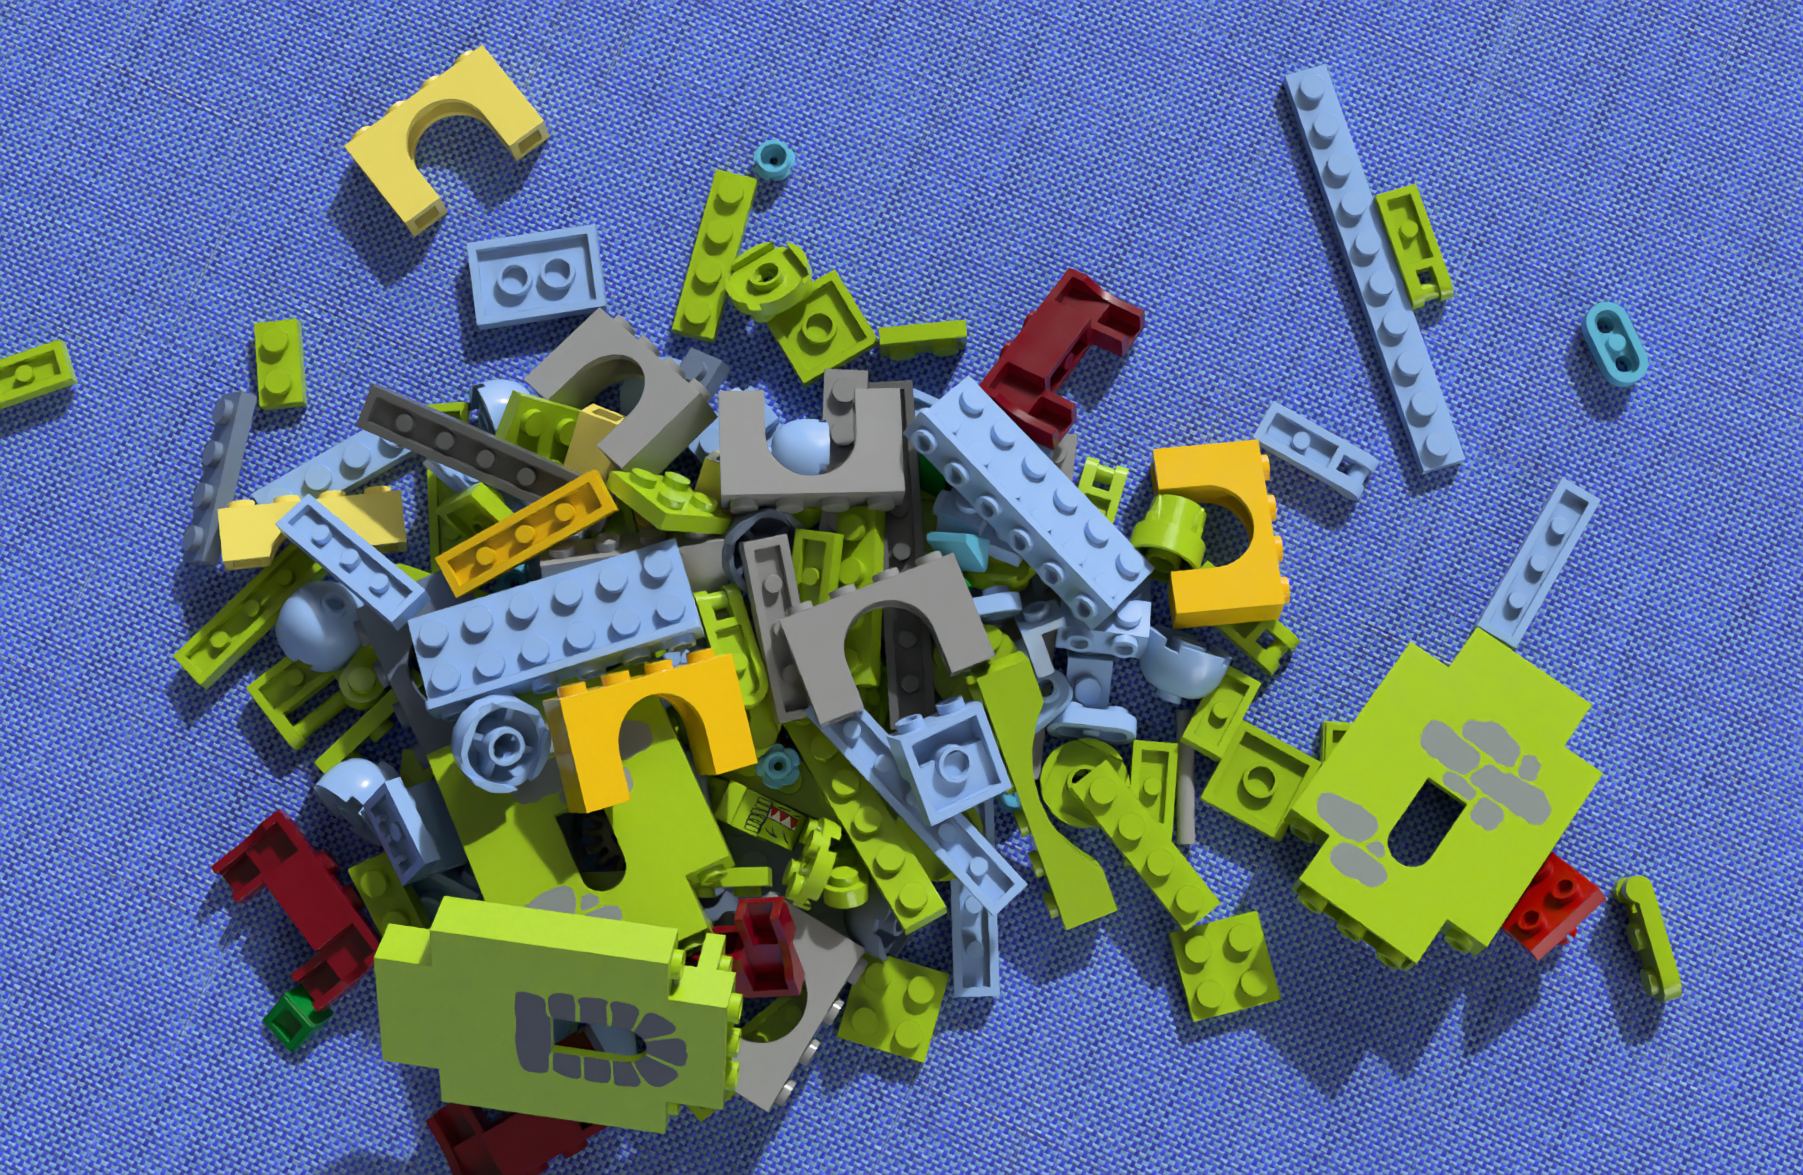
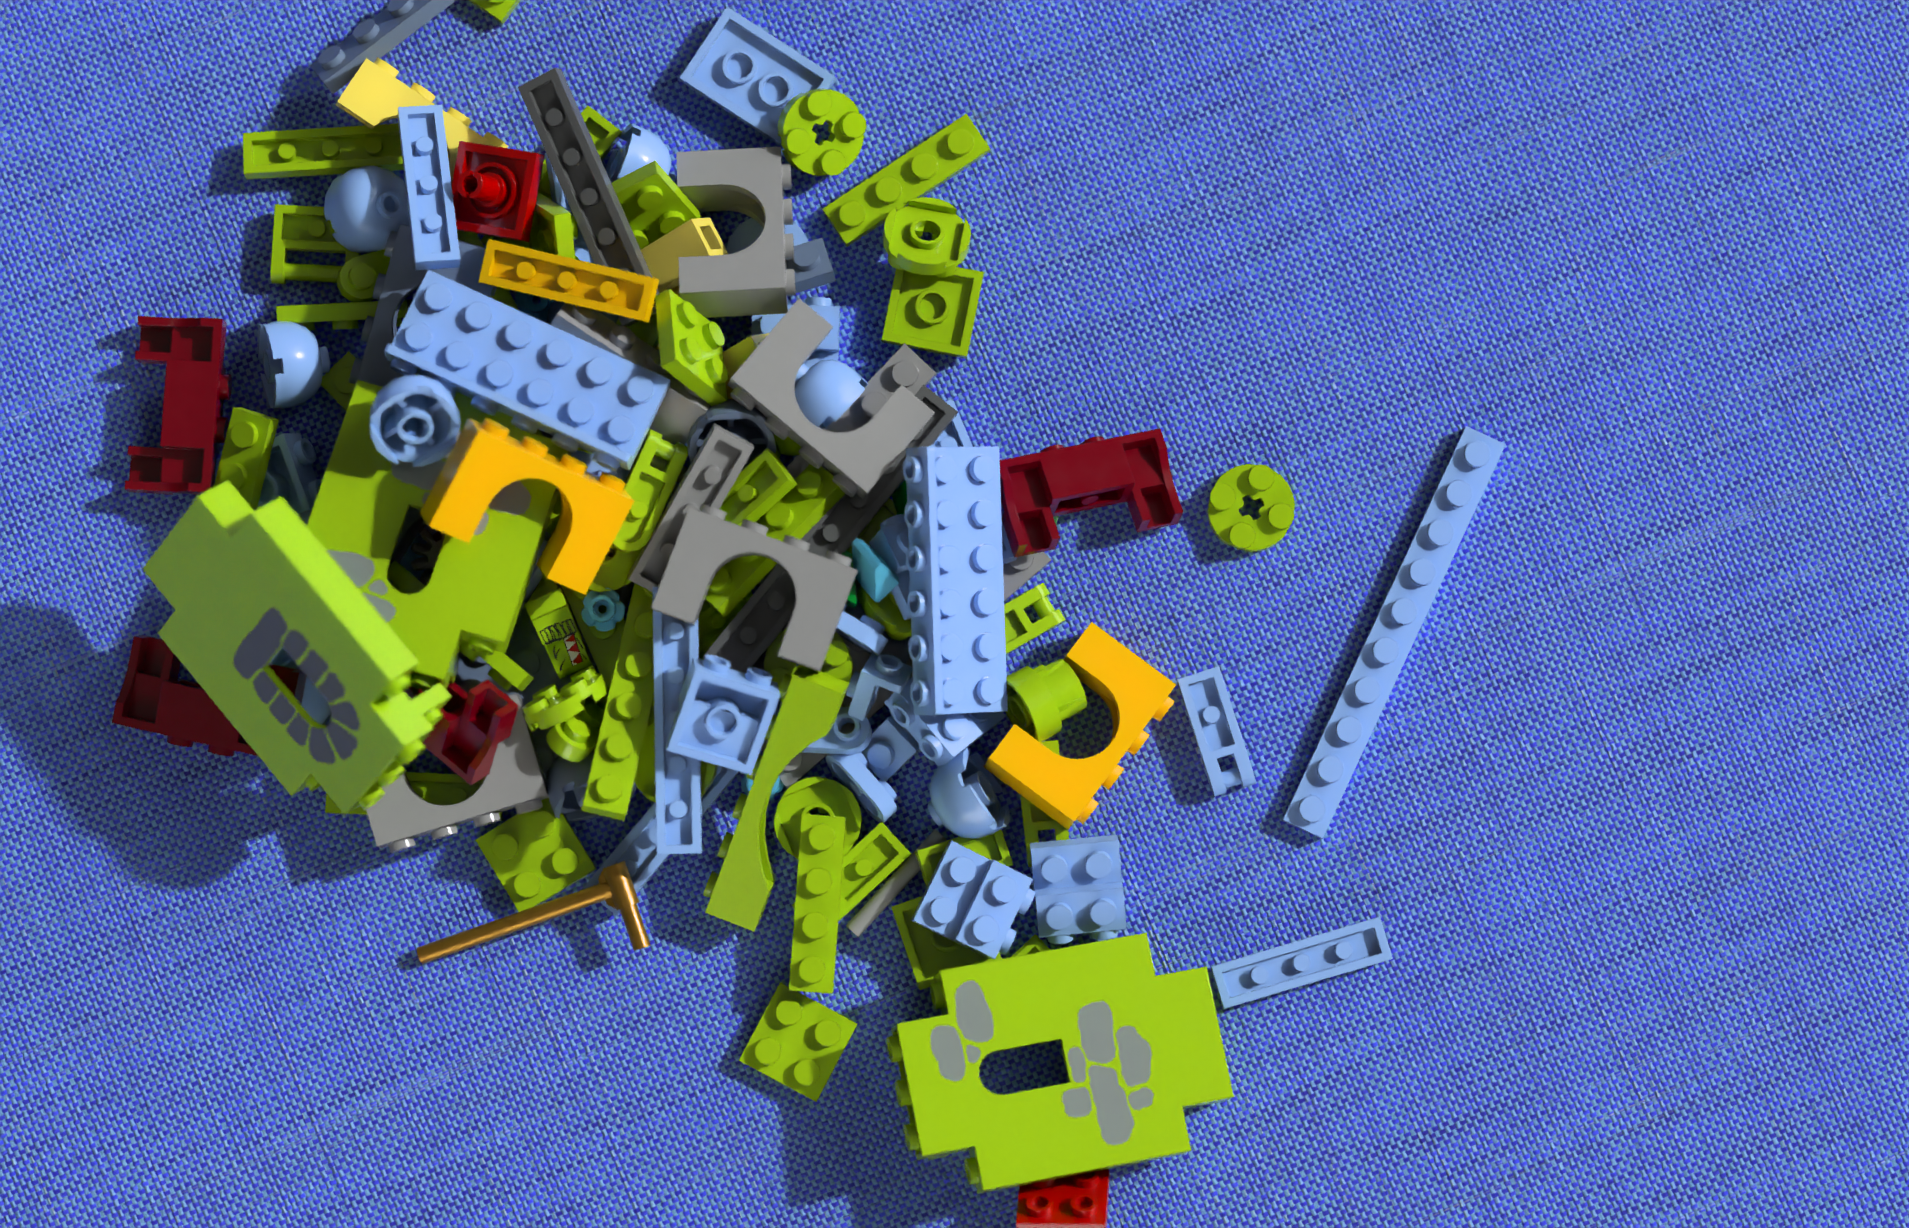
camera: 40 degrees right, 5 degrees up
(295, 1018) = (104, 479): green slope -> none
(338, 468) = (471, 93): light blue plate -> none
(409, 520) = (495, 190): none -> red plate
(415, 829) = (305, 422): light blue bracket -> none
(632, 252) = (798, 139): none -> lime plate
(769, 150) = (1020, 134): medium azure plate -> none
(937, 337) = (985, 375): lime plate -> none
(979, 975) = (614, 888): none -> pearl gold bar
(1192, 245) = (1242, 531): none -> lime plate
(1262, 734) = (974, 901): none -> light blue plate
(1326, 656) = (1078, 888): none -> light blue plate
(1413, 245) = (1438, 642): lime plate -> none
(1618, 344) = (1518, 855): medium azure plate -> none

